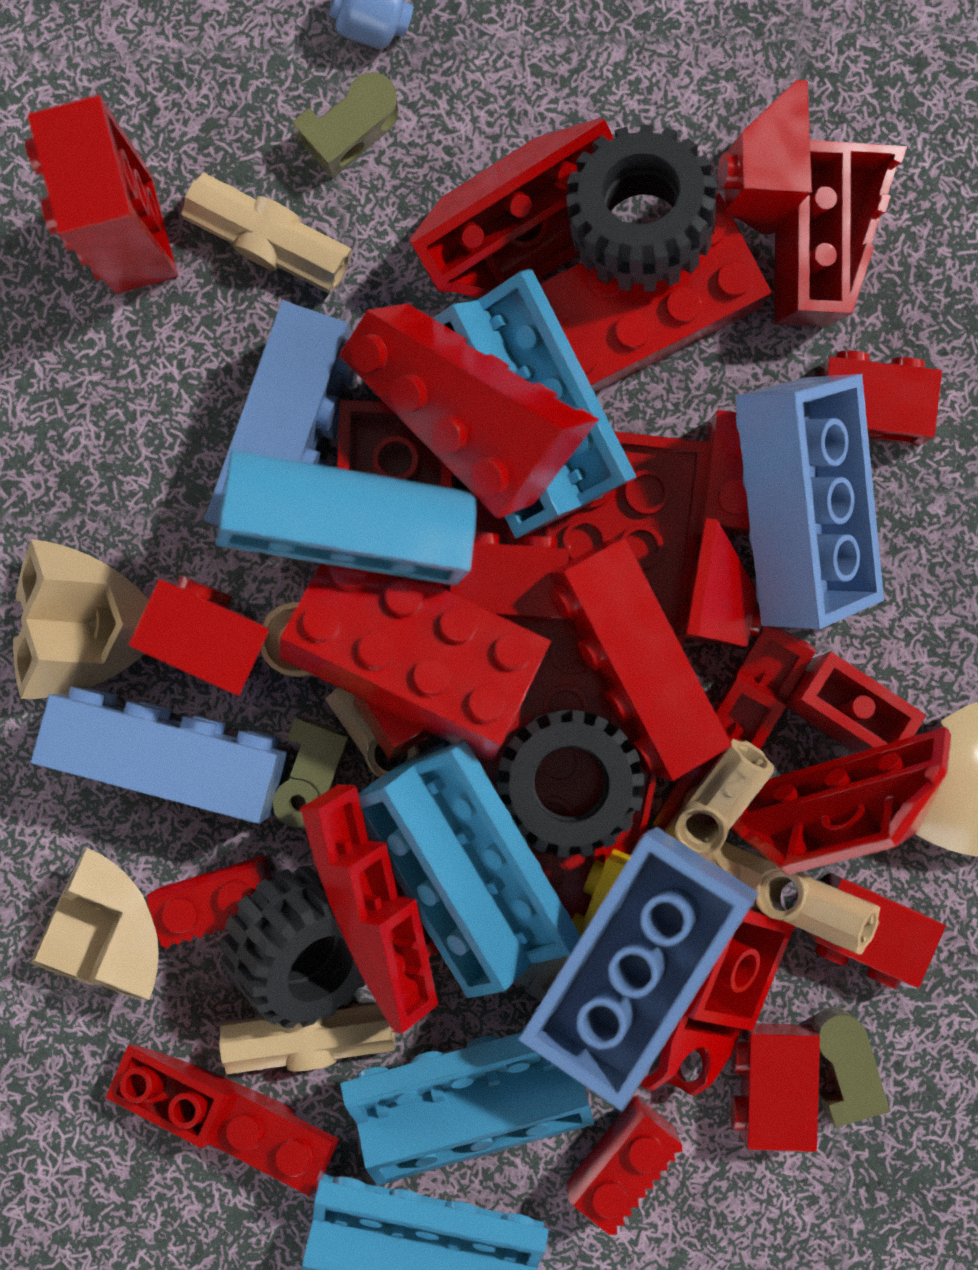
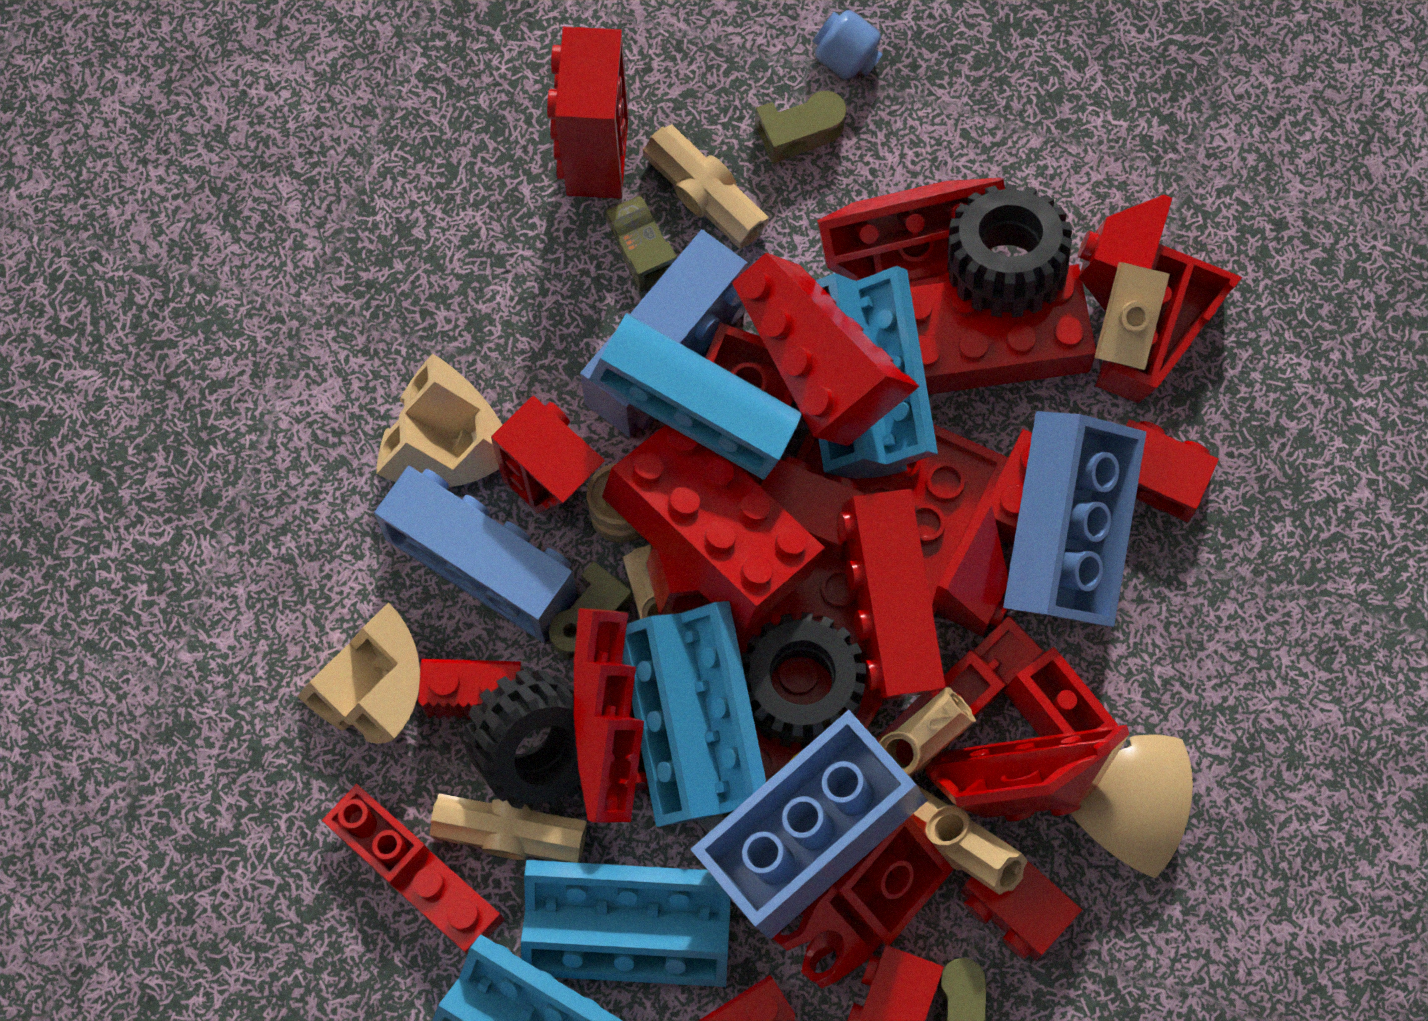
camera: 15 degrees right, 15 degrees down
(218, 324) = (640, 241): none -> olive leg
(805, 241) = (1131, 315): none -> tan plate

